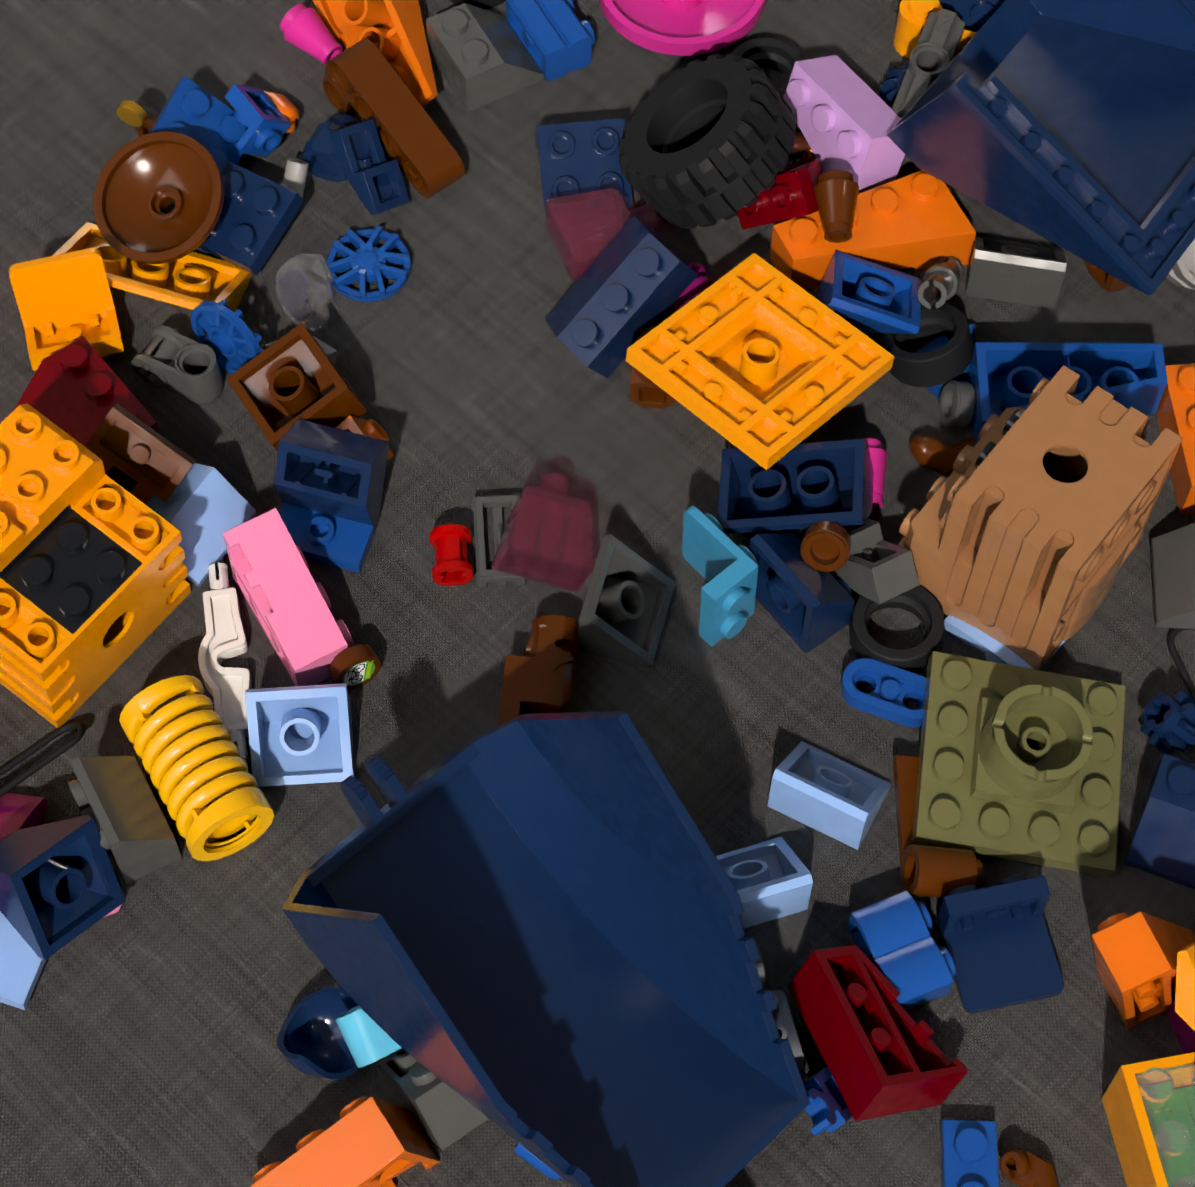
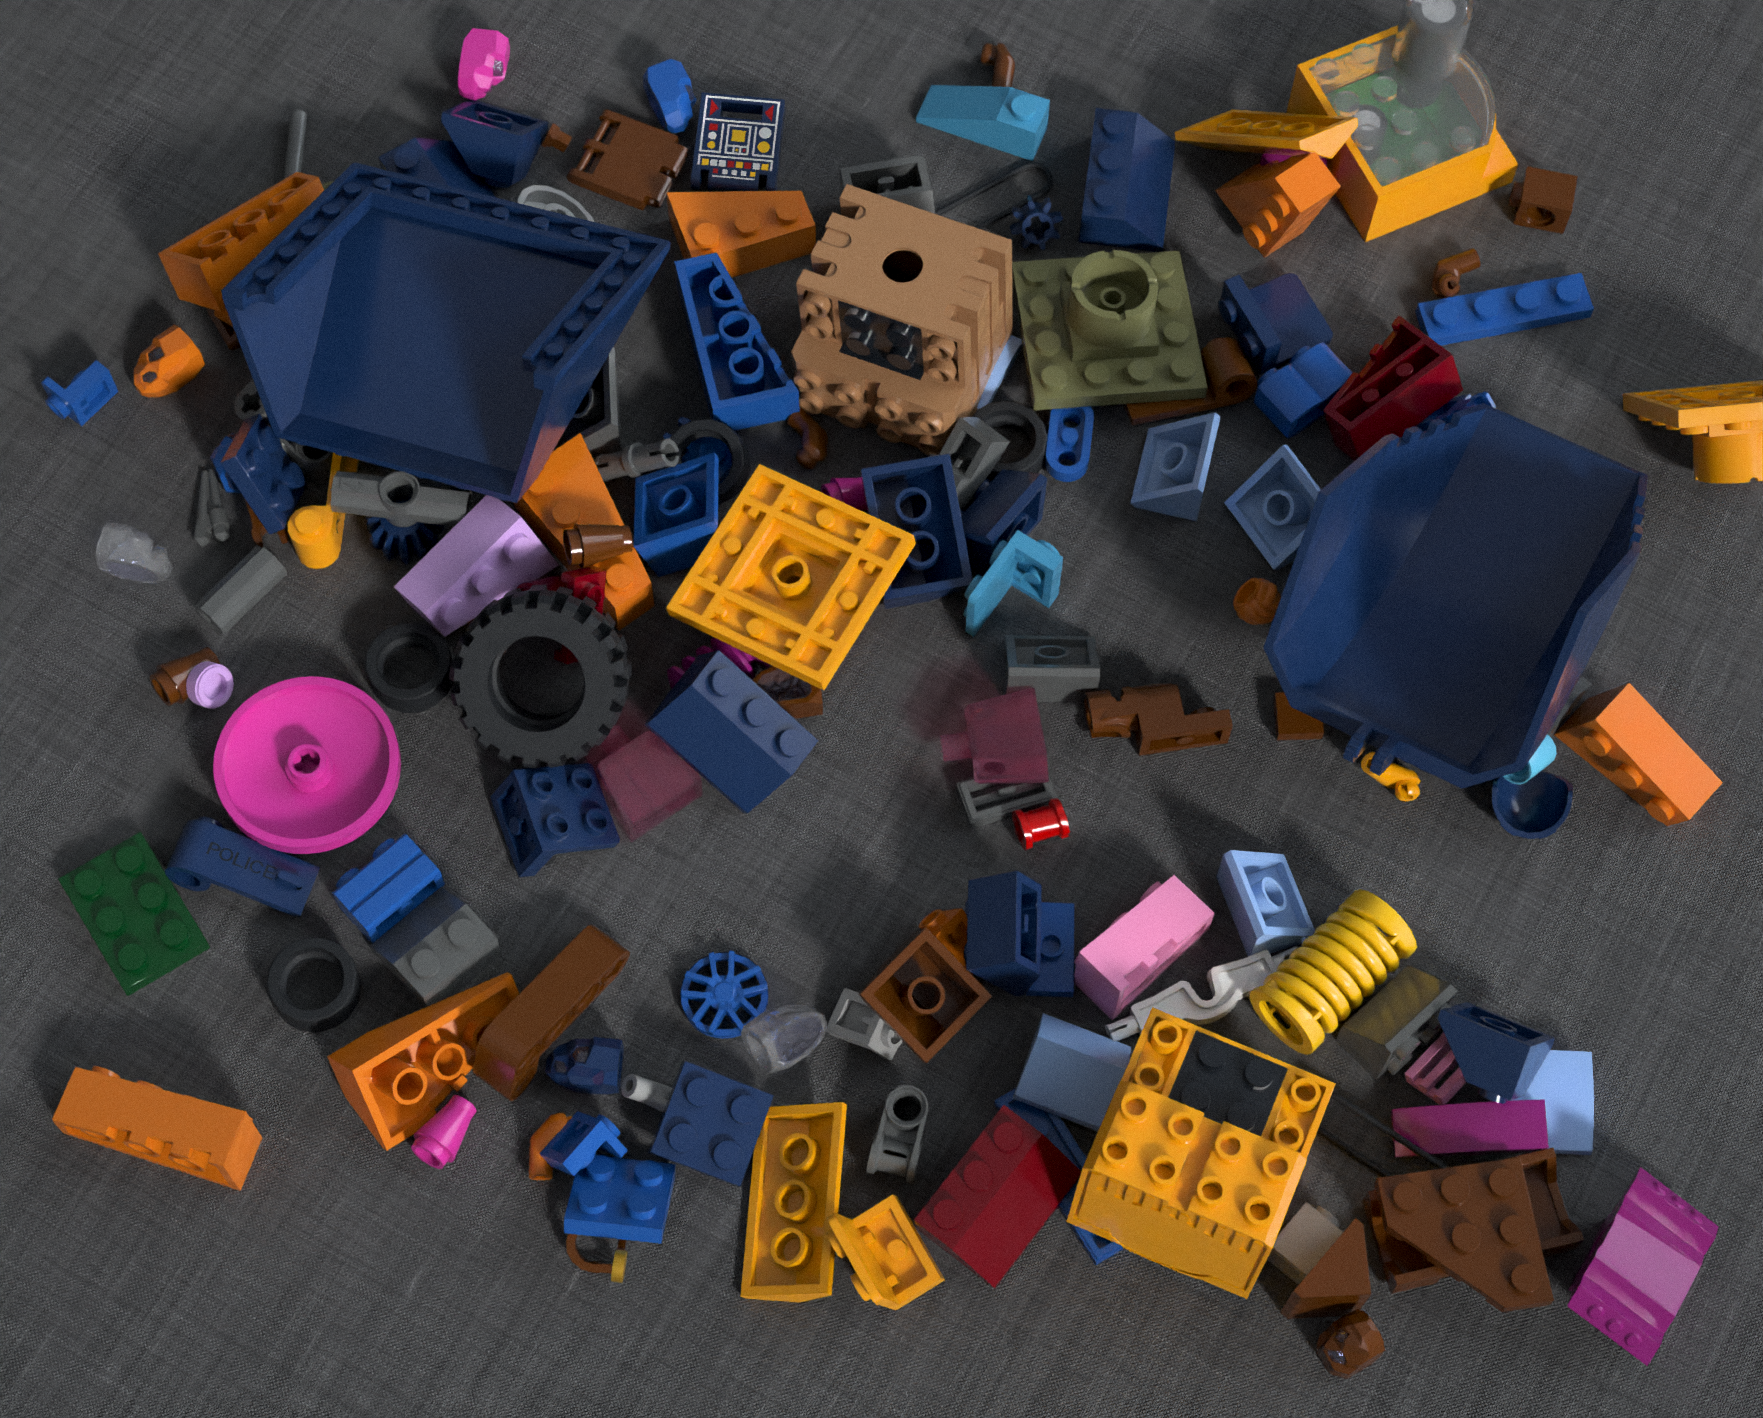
camera: 105 degrees left, 5 degrees up
(140, 186) = (754, 1191): reddish brown dish -> none
(140, 454) = (1057, 1107): reddish brown plate -> none
(226, 333) = (870, 1085): blue wheel -> none
(355, 666) = (1182, 870): reddish brown tile -> none
(364, 163) = (621, 1013): dark blue slope -> none
(826, 546) = (972, 487): reddish brown tile -> none
(957, 404) = (761, 431): dark grey tile -> none

